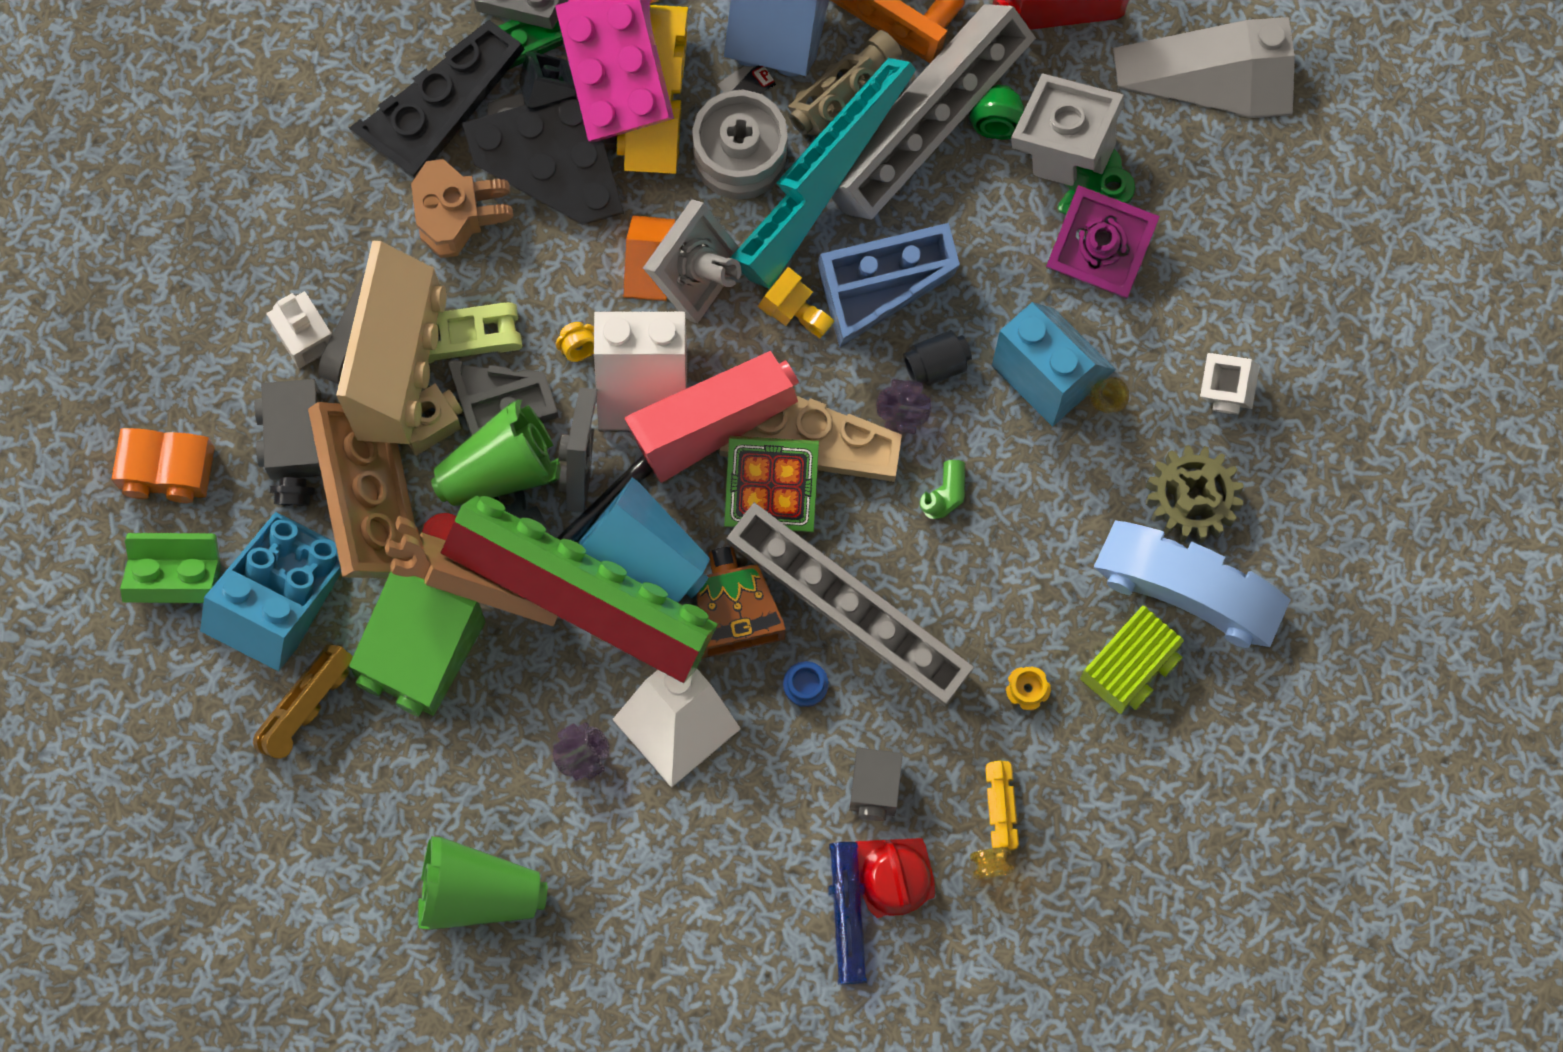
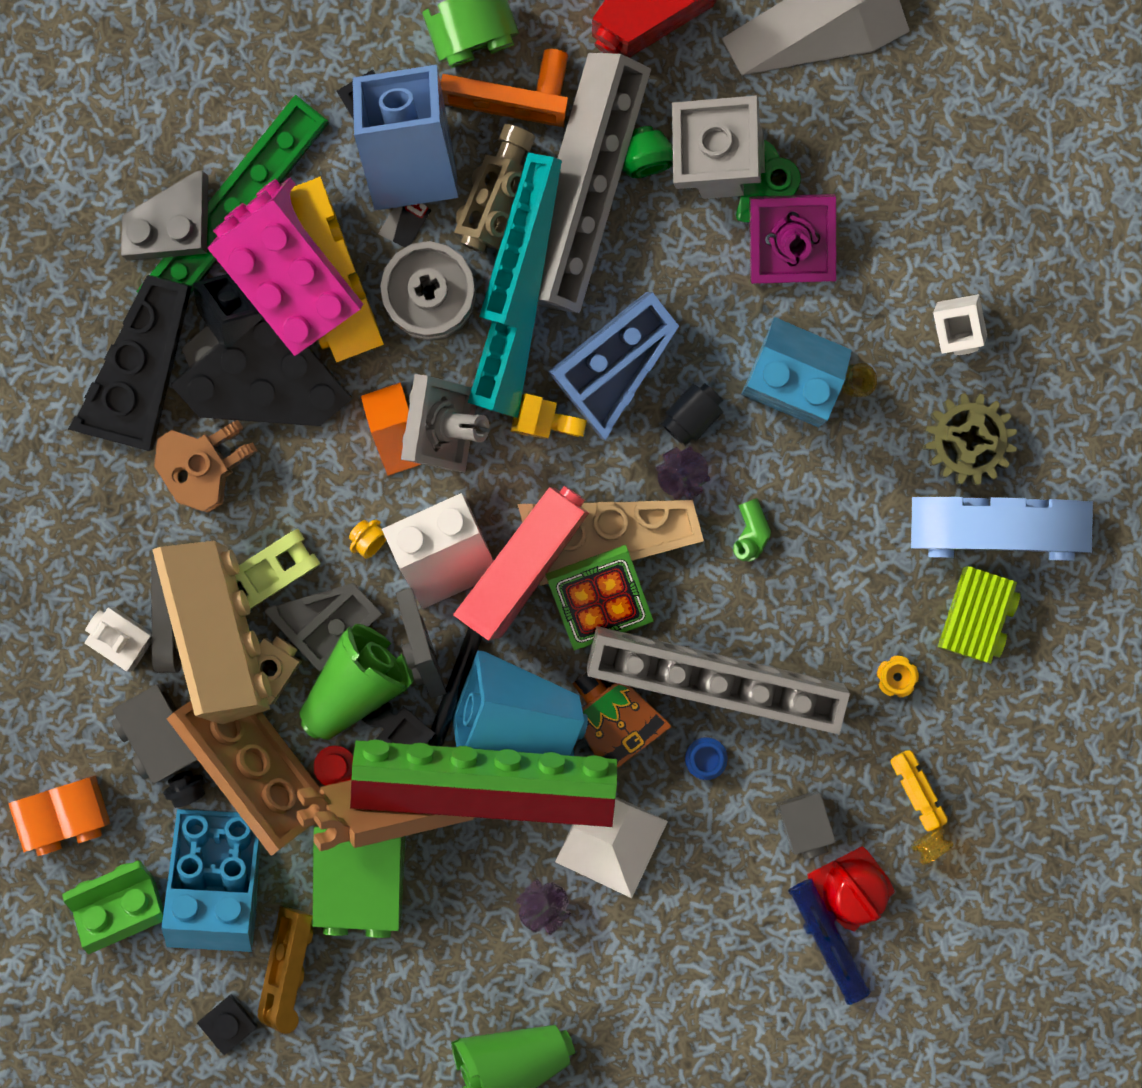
camera: 20 degrees left, 15 degrees up
(220, 733) = (227, 1024): none -> black plate

